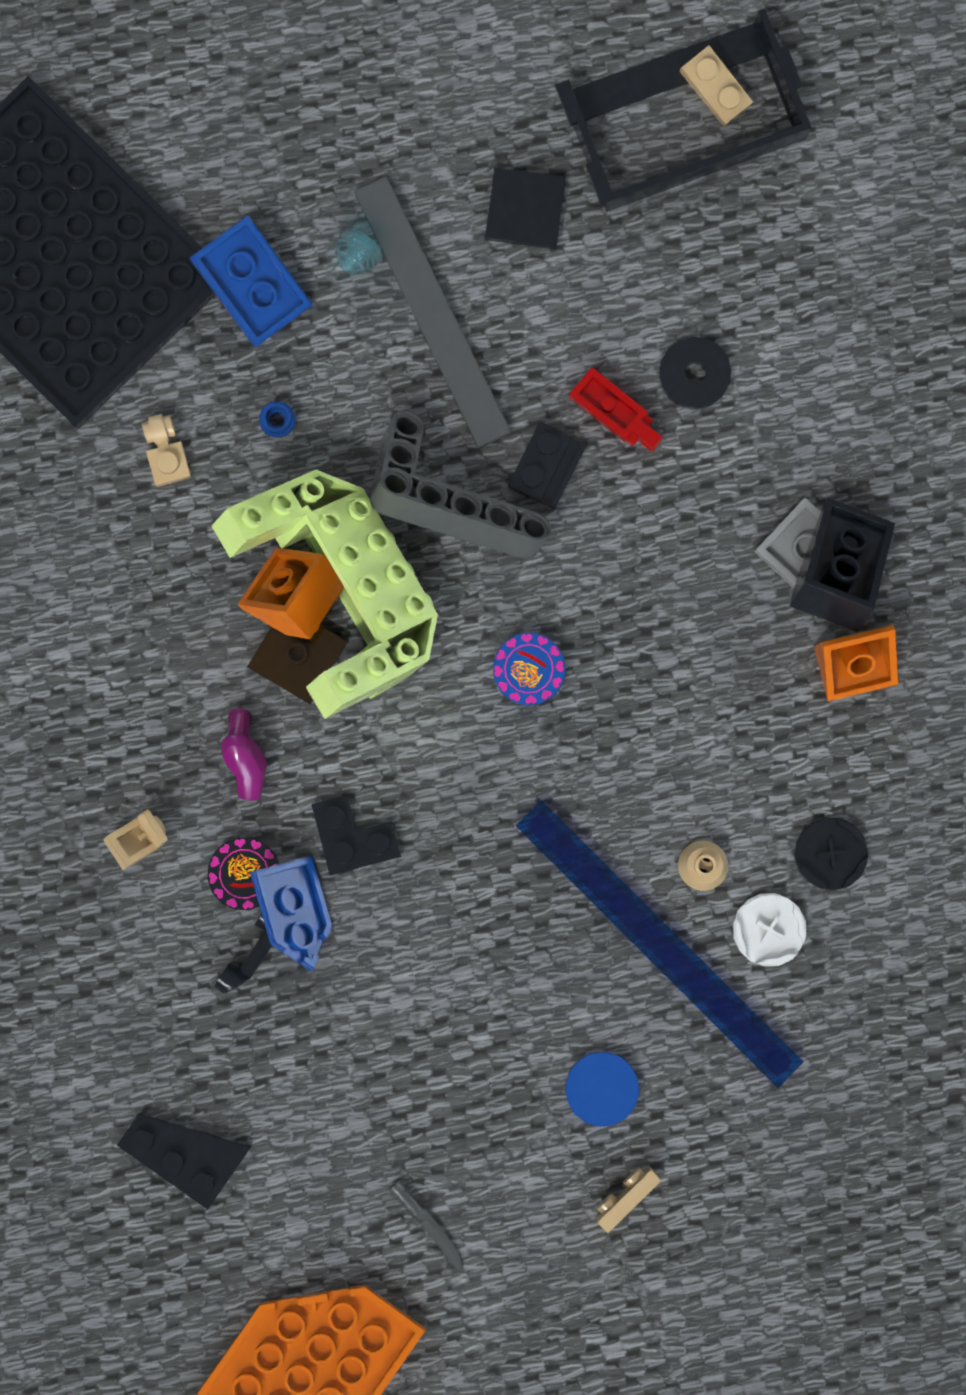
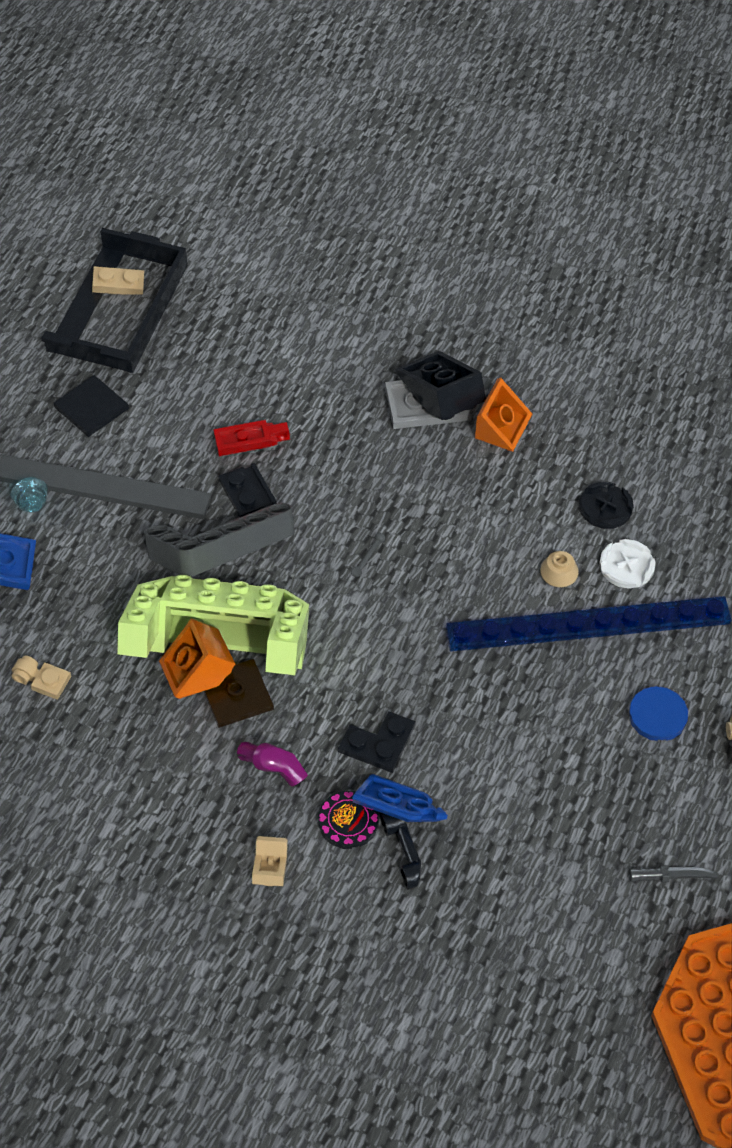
camera: 50 degrees left, 30 degrees down
(184, 1157) = (509, 992): black wing -> none
(277, 408) = (83, 597): blue plate -> none
(529, 669) = (360, 577): blue tile -> none
(710, 358) = (264, 378): black tile -> none

